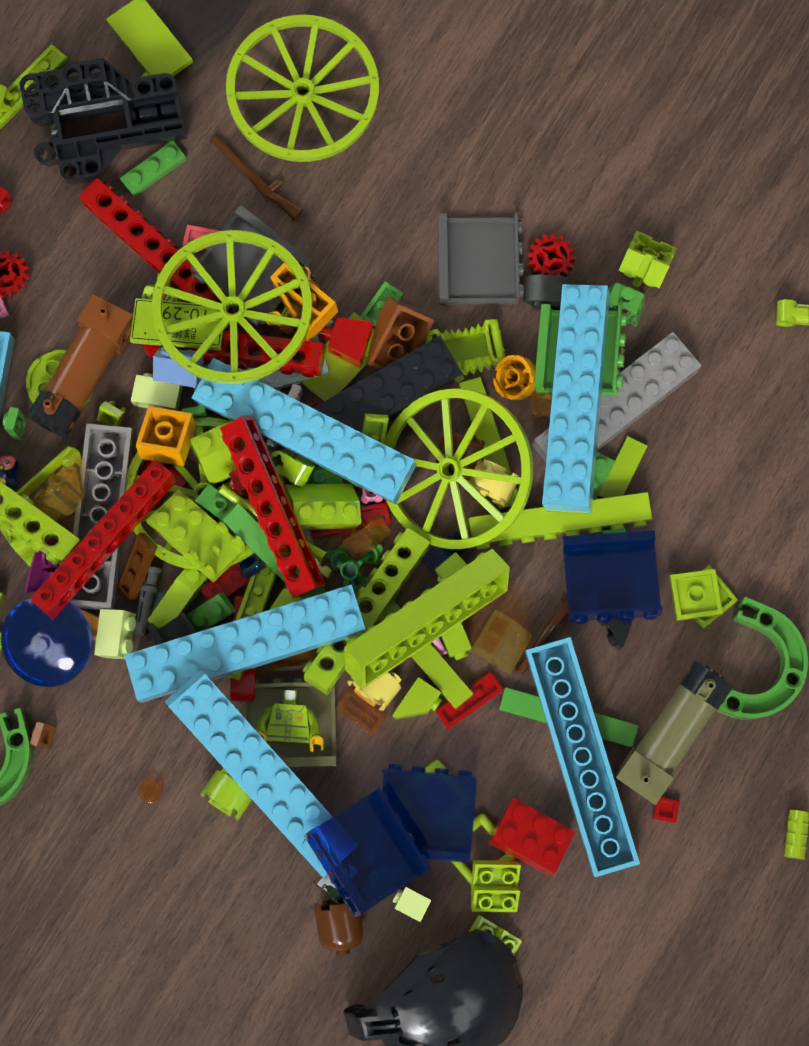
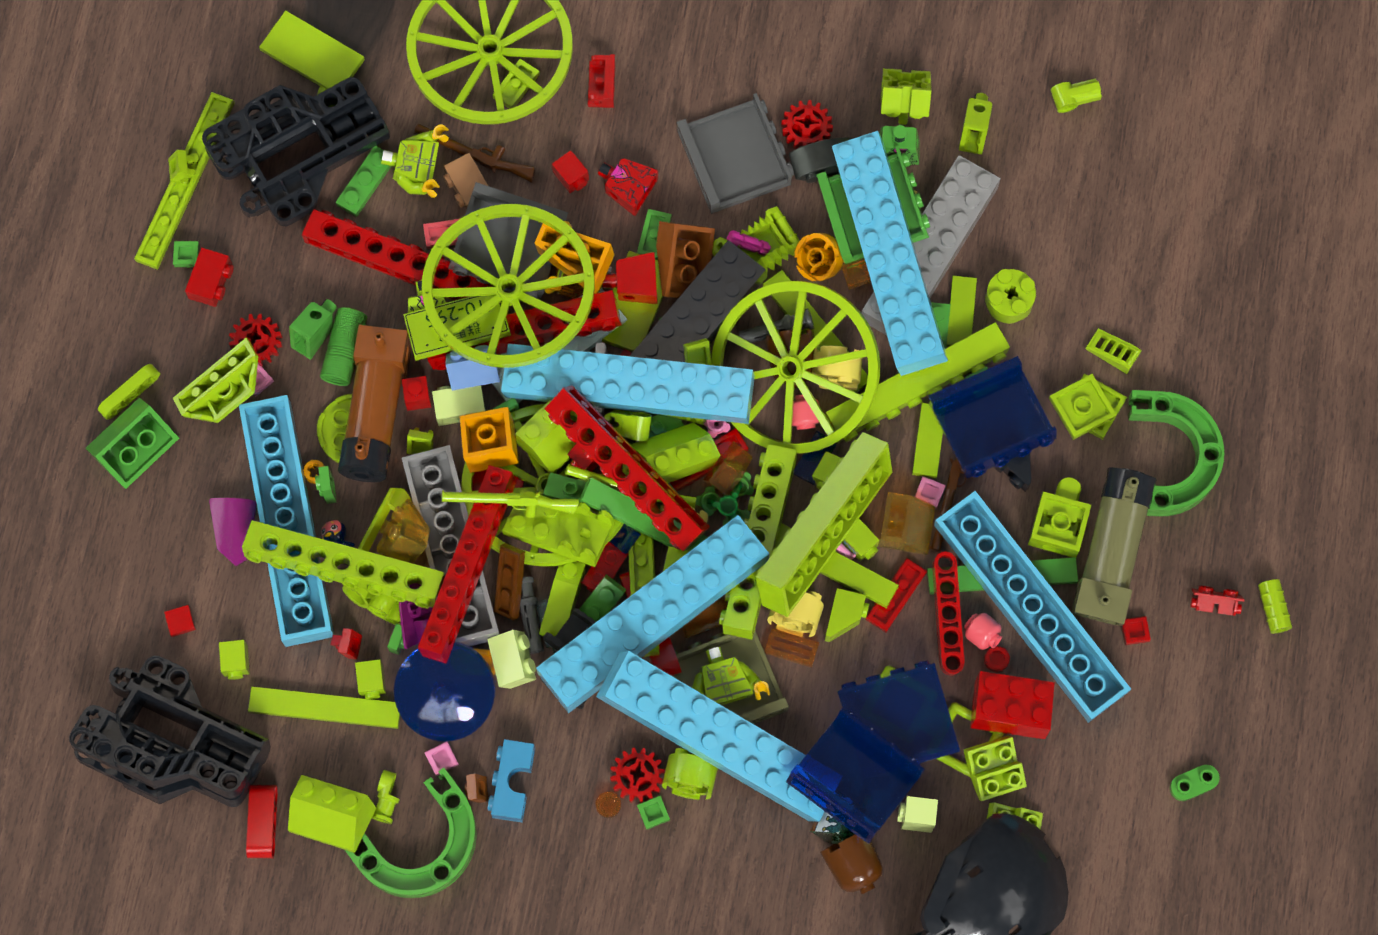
camera: 15 degrees left, 5 degrees down
(9, 400) = (311, 464): none -> light orange bush
(21, 581) = (396, 640): none -> bright green plate
(24, 697) = (441, 757): none -> bright pink tile
(56, 281) = (312, 328): none -> bright green torso
(62, 756) = (513, 758): none -> dark azure arch
(63, 323) = (339, 368): none -> bright green piece
(123, 370) = (416, 393): none -> red brick
(167, 501) = (515, 500): none -> lime piece
(185, 813) = (653, 812): none -> bright green plate
(190, 766) = (625, 772): none -> red gear
(201, 167) = (416, 161): none -> lime torso
(236, 193) = (462, 176): none -> medium nougat brick
(309, 133) = (514, 89): none -> lime plate
(330, 224) = (570, 172): none -> red brick
(377, 252) = (629, 183): none -> red torso
(389, 154) = (601, 81): none -> red hinge
(447, 512) = (803, 415): none -> coral head
(459, 343) = (749, 243): none -> dark pink axle
(459, 427) = (760, 332): none -> dark grey pin
(506, 746) = (951, 601): none -> red beam
(531, 761) = (983, 631): none -> coral head
(533, 620) = (930, 491): none -> bright pink tile
(535, 789) = (997, 659): none -> red tile
(548, 577) = (928, 444): none -> lime tile
(637, 688) = (1060, 519): none -> lime brick
(665, 964) = (1195, 783): none -> bright green plate
(678, 482) = (1015, 283): none -> lime brick
(699, 309) = (976, 119): none -> lime torso
(742, 565) = (1117, 361): none -> lime slope
(755, 812) = (1226, 600): none -> hinge

